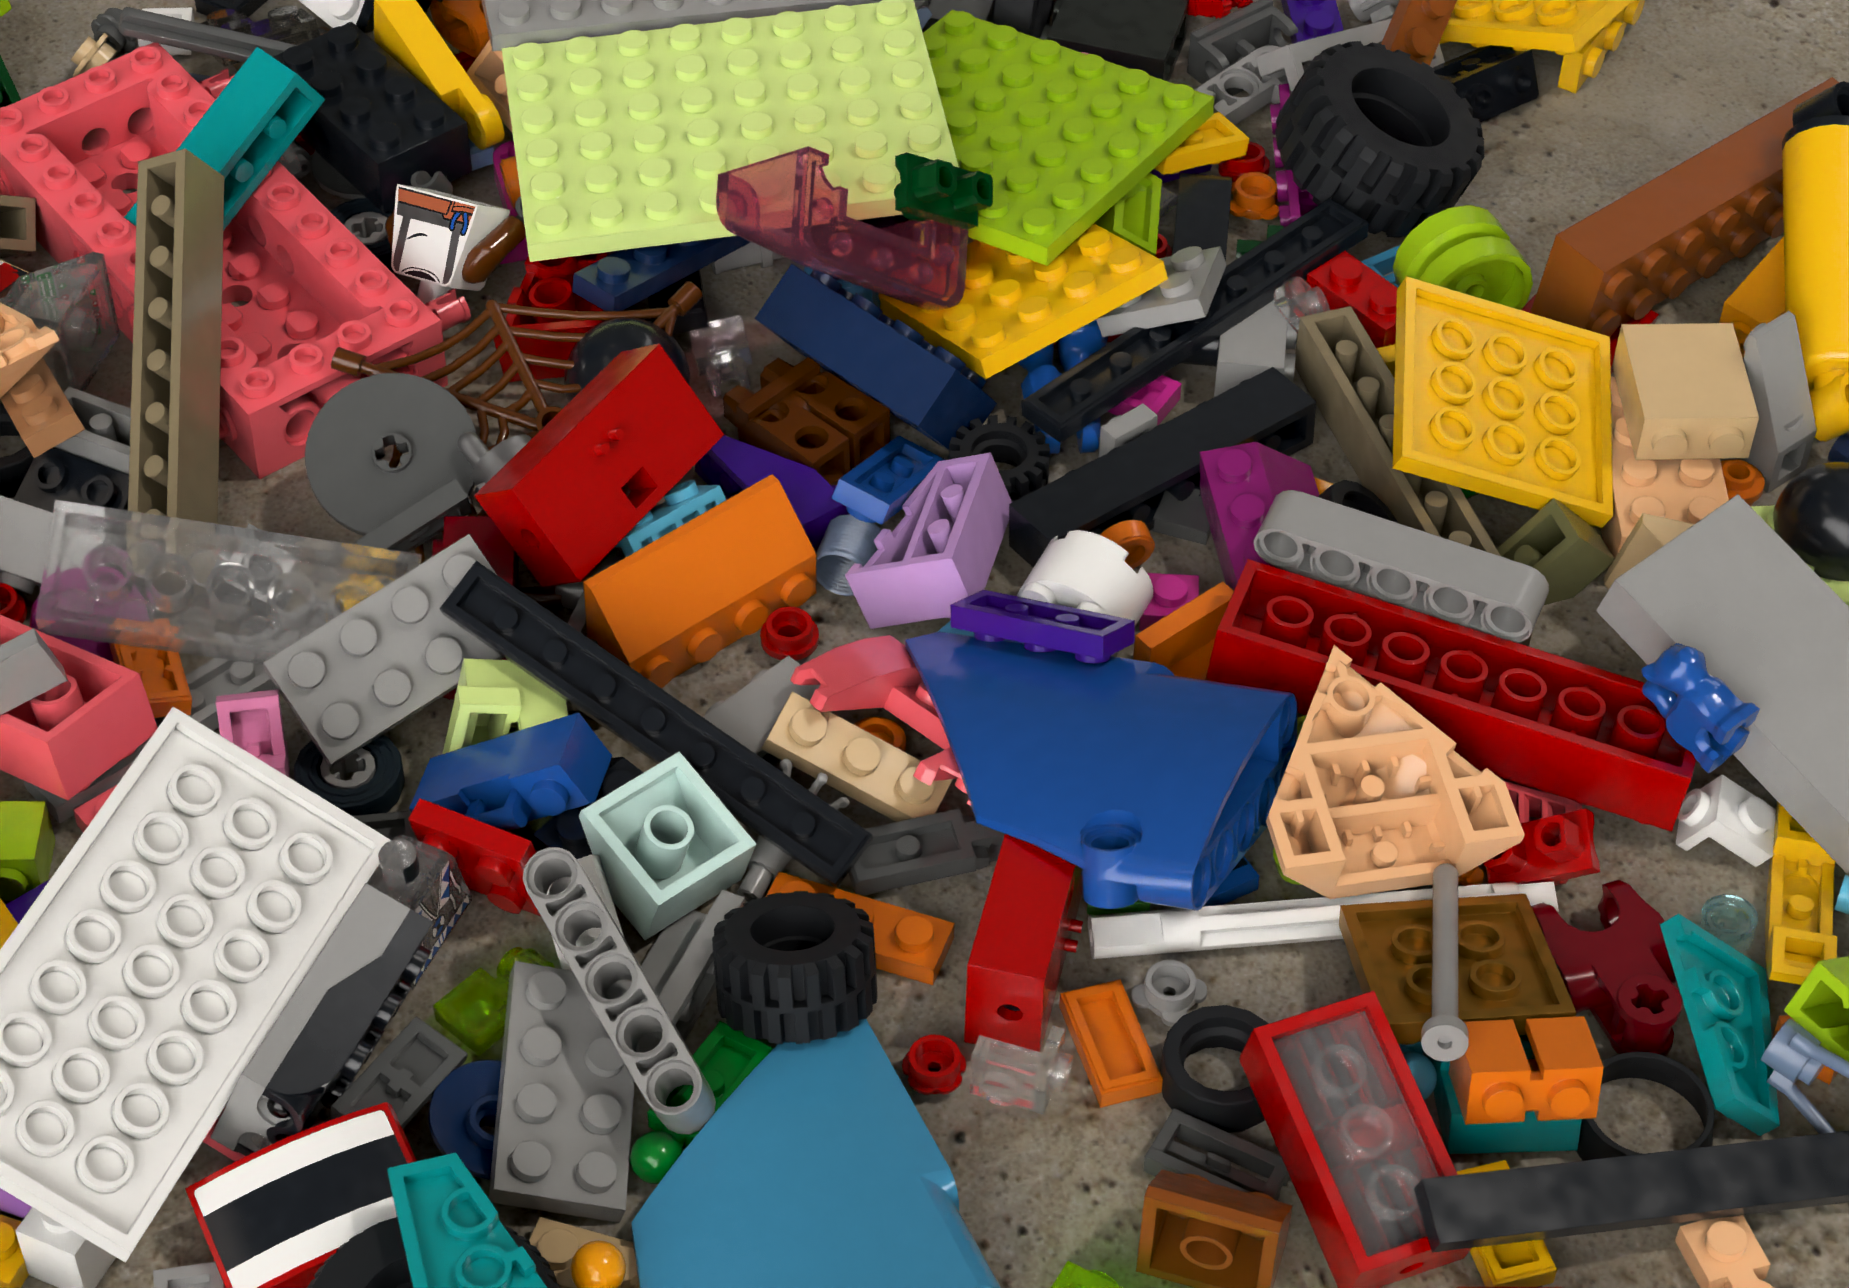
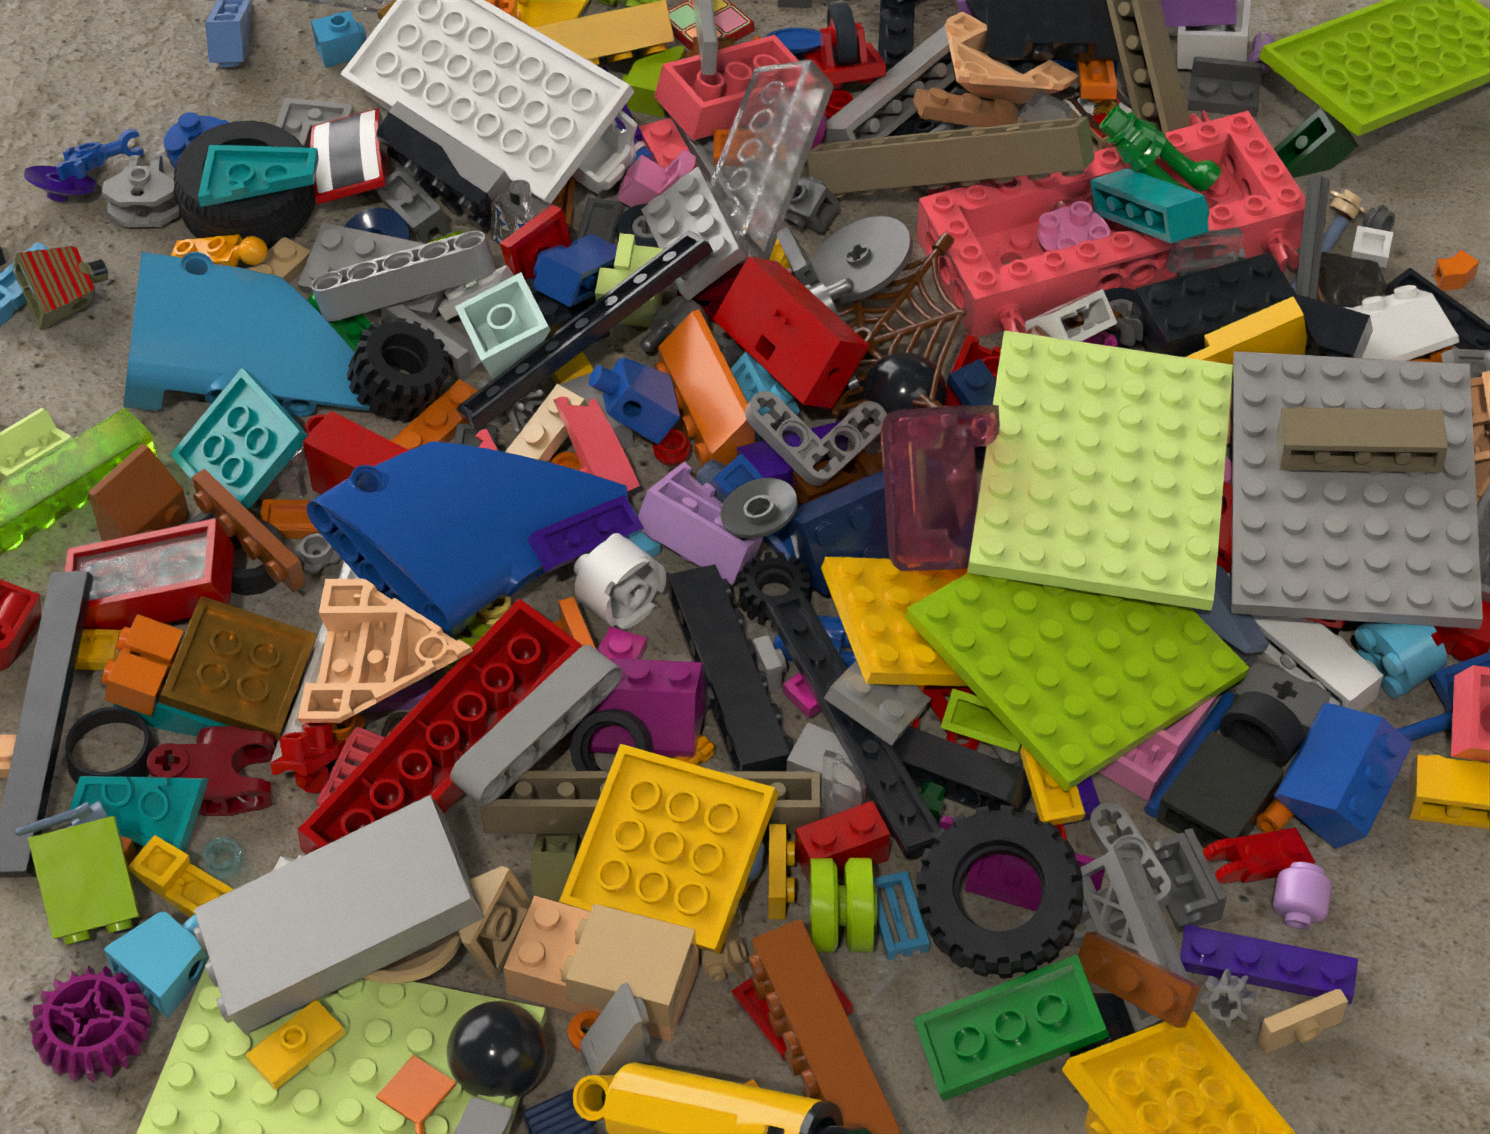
camera: 110 degrees right, 5 degrees up
(109, 166) = (1142, 144): none -> green piece
(254, 277) = (1070, 226): none -> bright pink dish
(750, 642) = (638, 397): none -> blue torso
(784, 422) = (812, 447): none -> light grey beam
(920, 424) = (759, 508): none -> dark grey dish
(941, 191) = (948, 526): dark green hips -> none
(1045, 1119) = (241, 439): none -> teal plate
(1134, 538) = (670, 633): orange tile -> none
(1208, 1049) = (252, 534): none -> dark orange plate
(1444, 1034) = (169, 610): light grey bar -> none
(1530, 130) = (1010, 1027): none -> green plate
(1704, 712) = (328, 823): blue animal -> none

